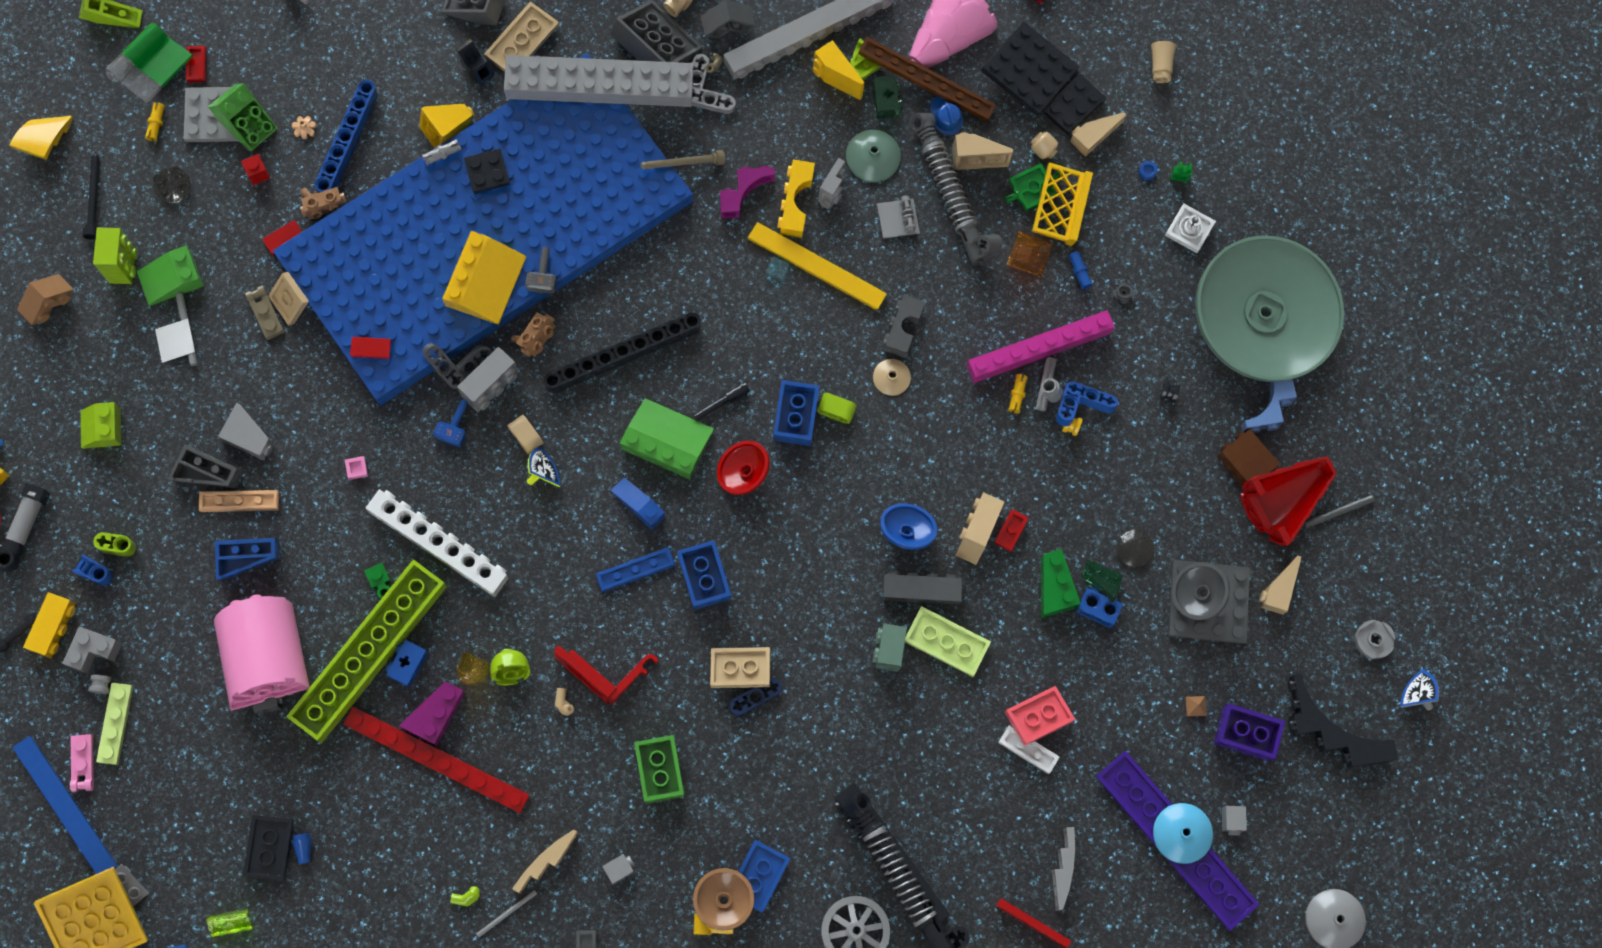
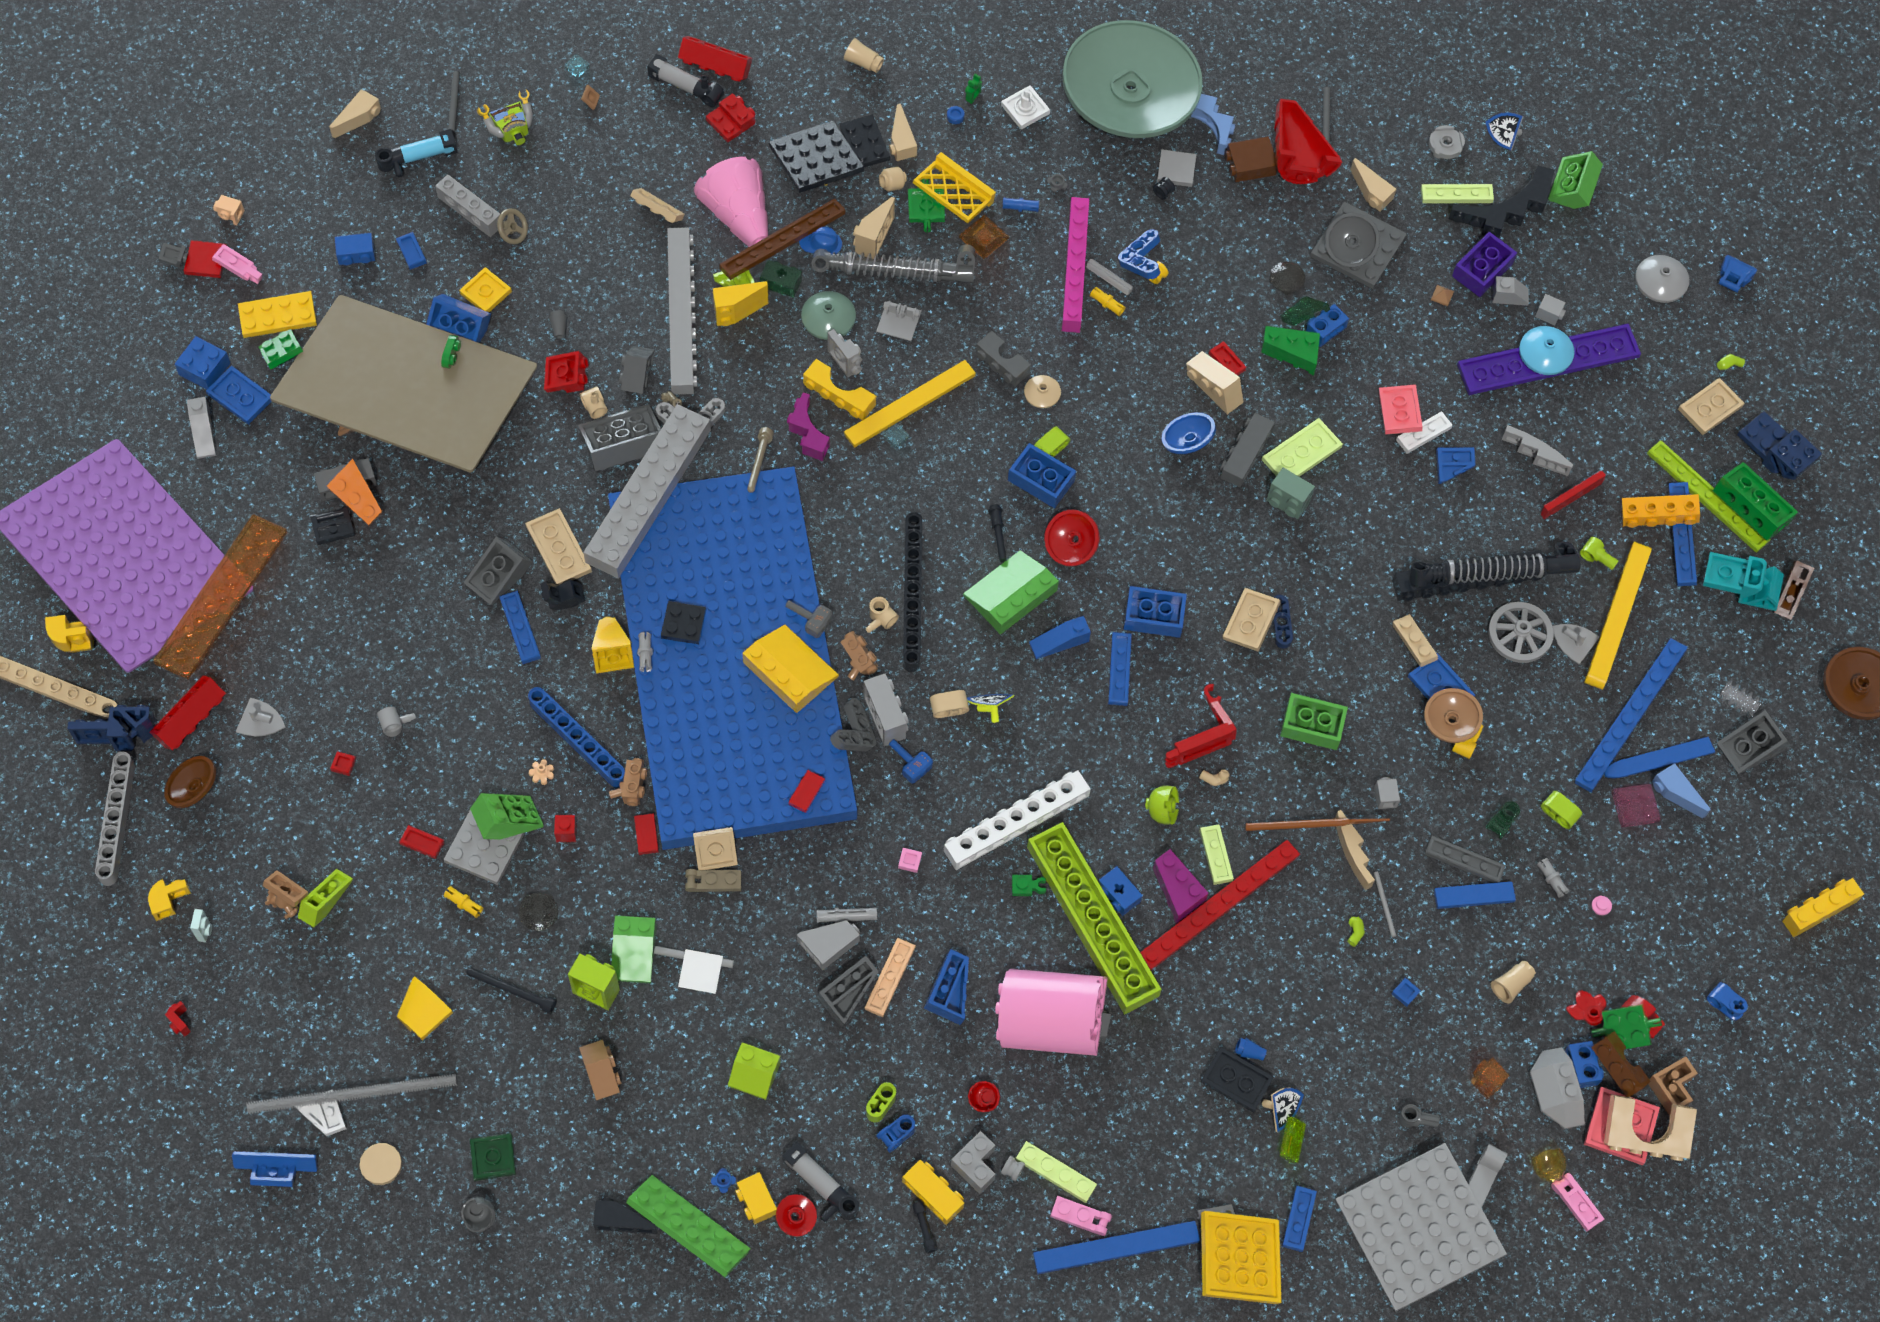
camera: 60 degrees left, 10 degrees down
(148, 63) = (399, 882): green door -> none
(154, 629) = (984, 1096): none -> red hair
(257, 901) = (1284, 1104): none -> shield
(274, 430) = (846, 914): none -> light grey pin
(432, 45) = (520, 627): none -> blue tile
(472, 669) = (1152, 837): clear yellow hair -> none
(484, 736) = (1216, 854): none -> yellowish green plate
(550, 809) = (1308, 823): none -> dark orange piece
(584, 341) = (886, 617): none -> tan piece
(793, 831) = (1415, 640): none -> tan plate
(1010, 791) = (1454, 462): none -> blue wing
(1051, 390) = (1121, 265): light grey brick -> none
(1201, 394) = (1177, 167): none -> light grey tile
(1233, 771) = (1509, 291): none -> light grey slope
(1320, 673) = (1457, 193): none -> yellowish green plate
(1401, 786) = (1576, 180): none -> bright green slope

